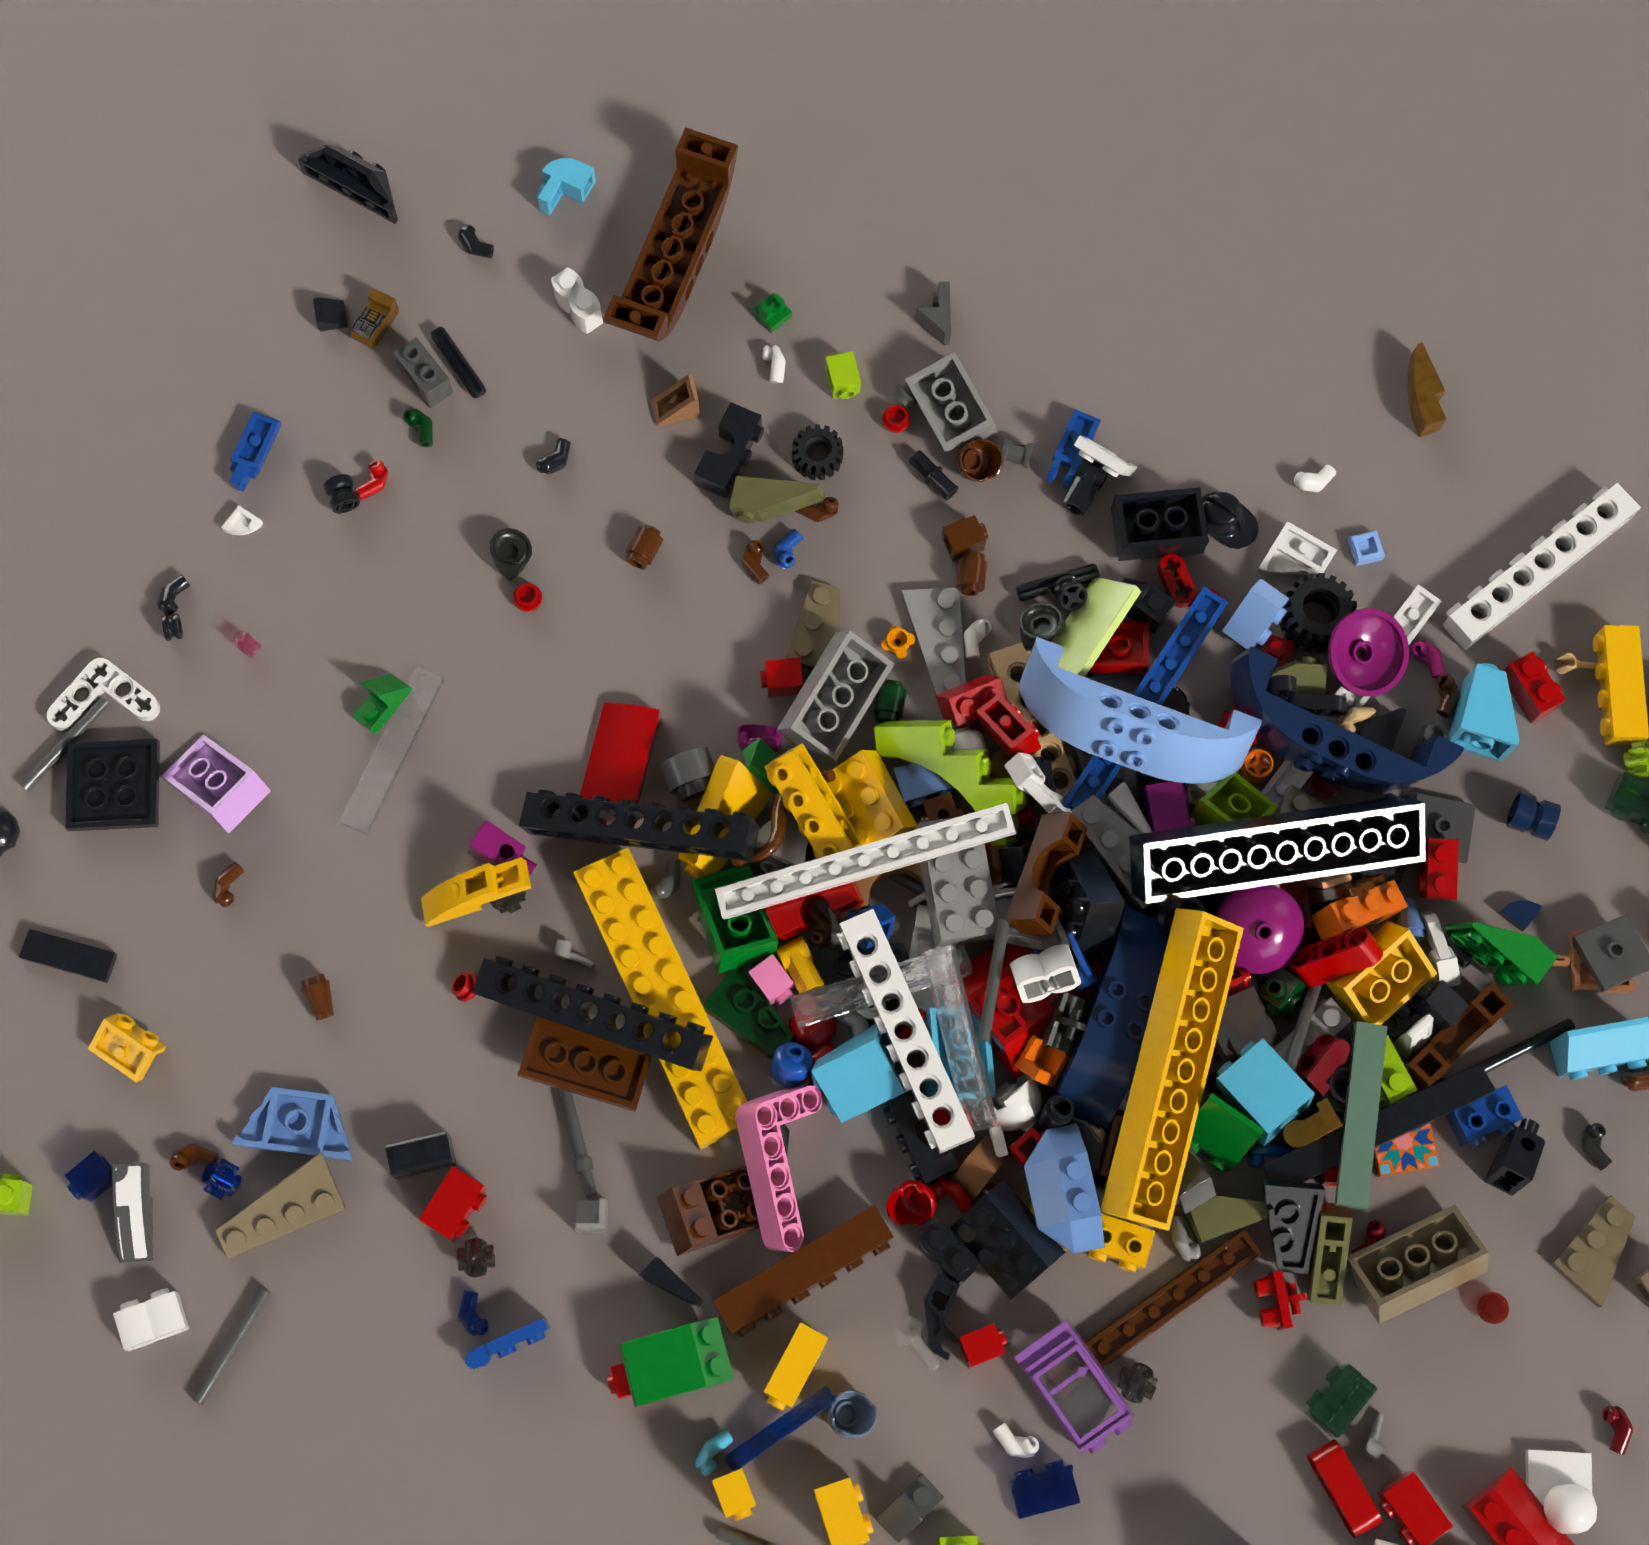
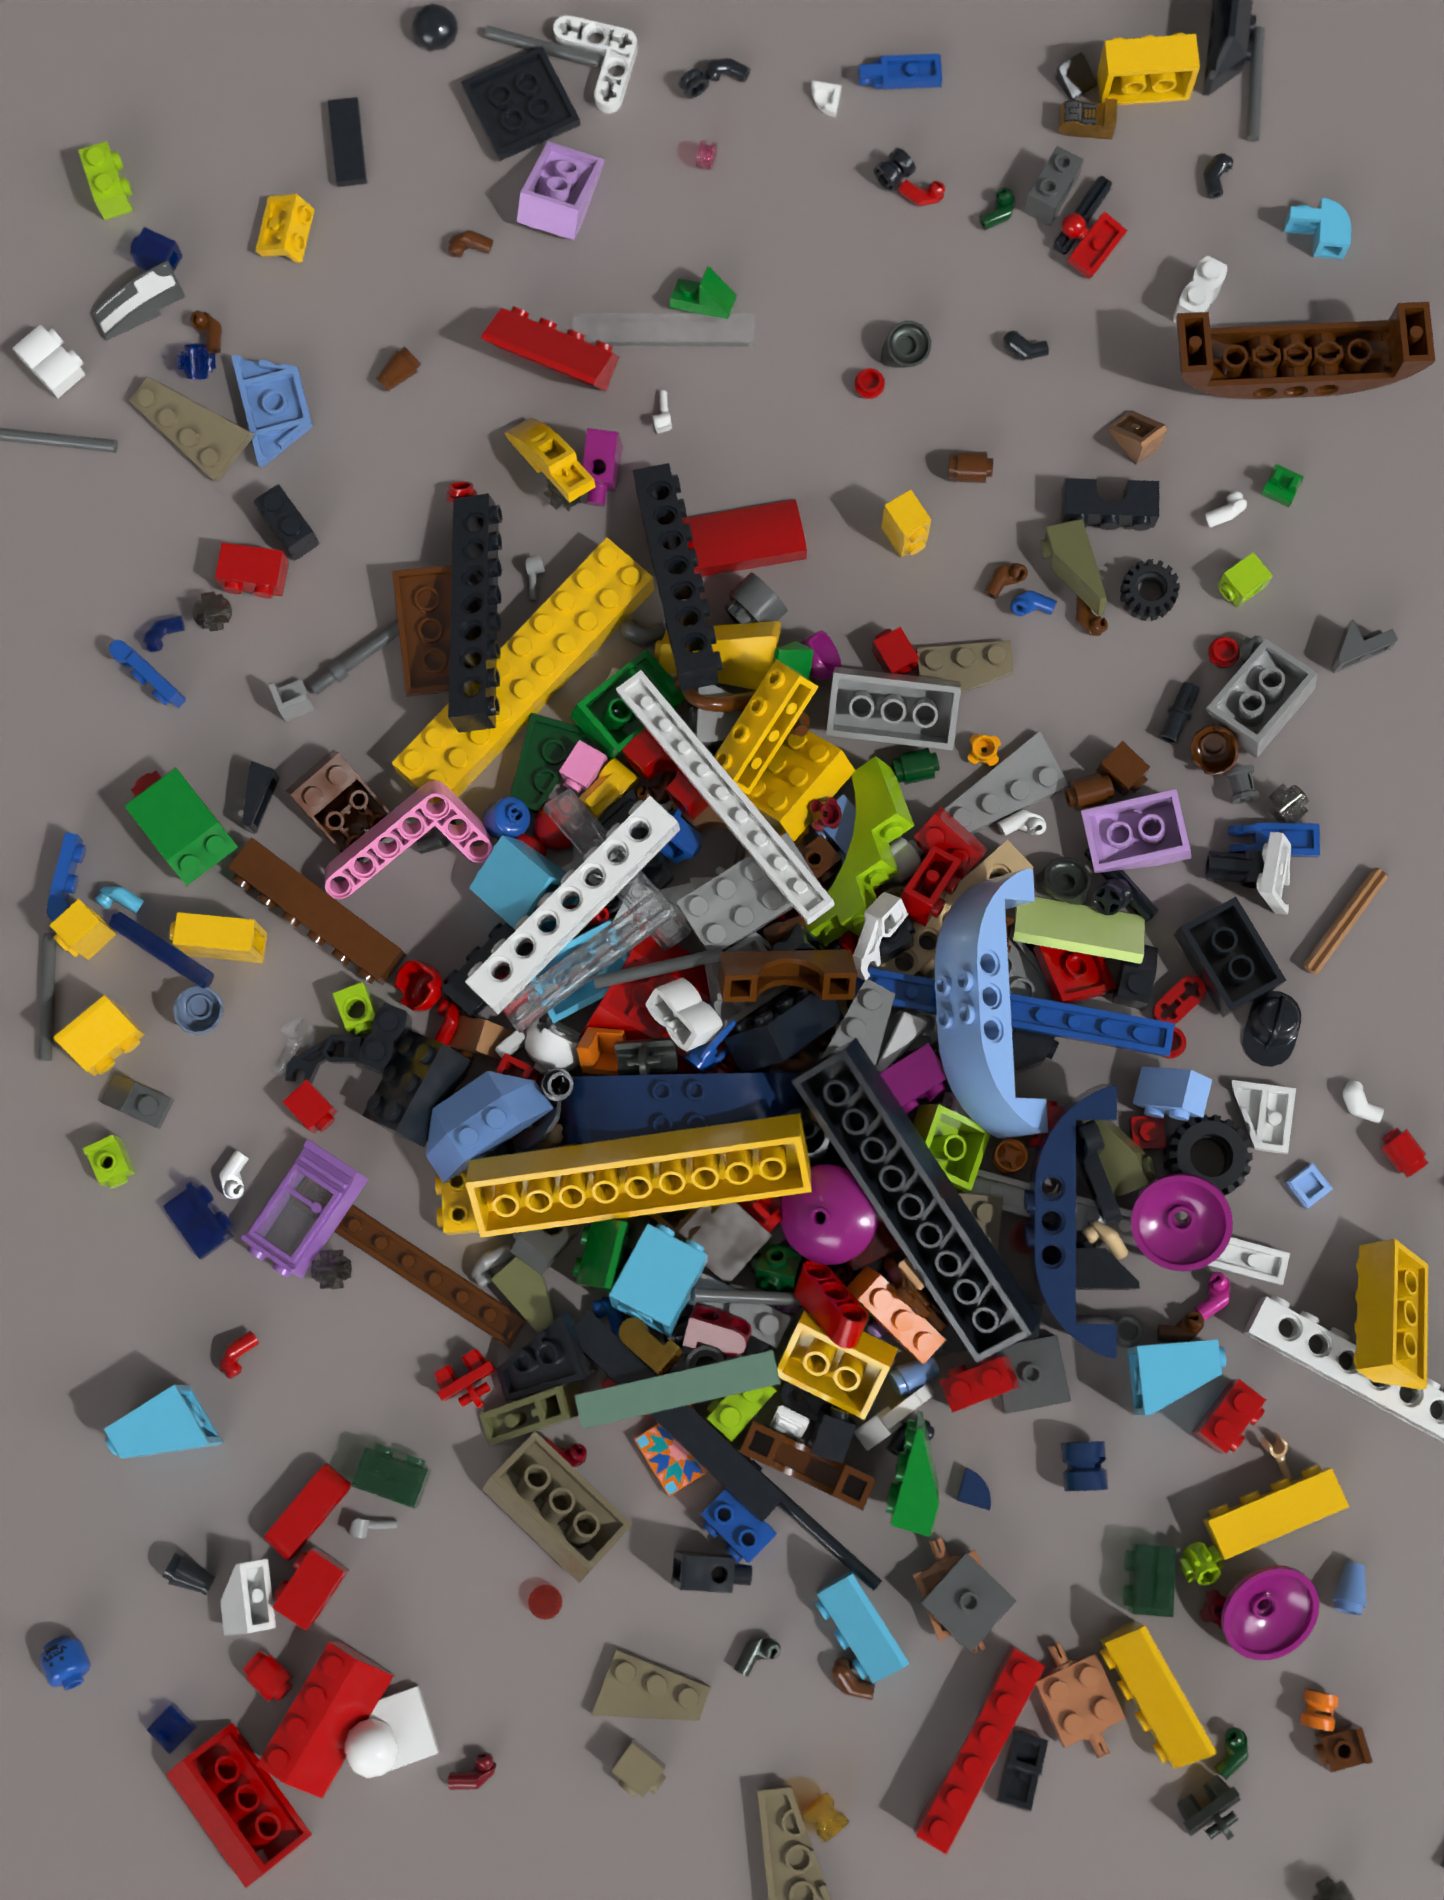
camera: 75 degrees right, 5 degrees up
(358, 252) = (1148, 69): none -> yellow brick
(370, 849) = (551, 348): none -> red slope
(412, 180) = (1255, 85): none -> dark grey bar
(479, 783) = (663, 421): none -> white hand
(489, 361) = (1094, 244): none -> red plate
(674, 1496) = (64, 879): none -> blue hinge
(676, 617) = (906, 524): none -> yellow brick
(896, 1275) = (350, 997): none -> lime brick
(908, 788) = (832, 814): none -> dark red plate
(1025, 549) = (1137, 833): none -> lavender slope
(1048, 424) = (1288, 803): none -> clear smoke gear
(1161, 426) = (1345, 921): none -> medium nougat axle
(1175, 1497) = (234, 1351): none -> red arm
(1368, 464) = (1403, 1151): none -> red brick
(1498, 529) = (1391, 1315): none -> yellow slope

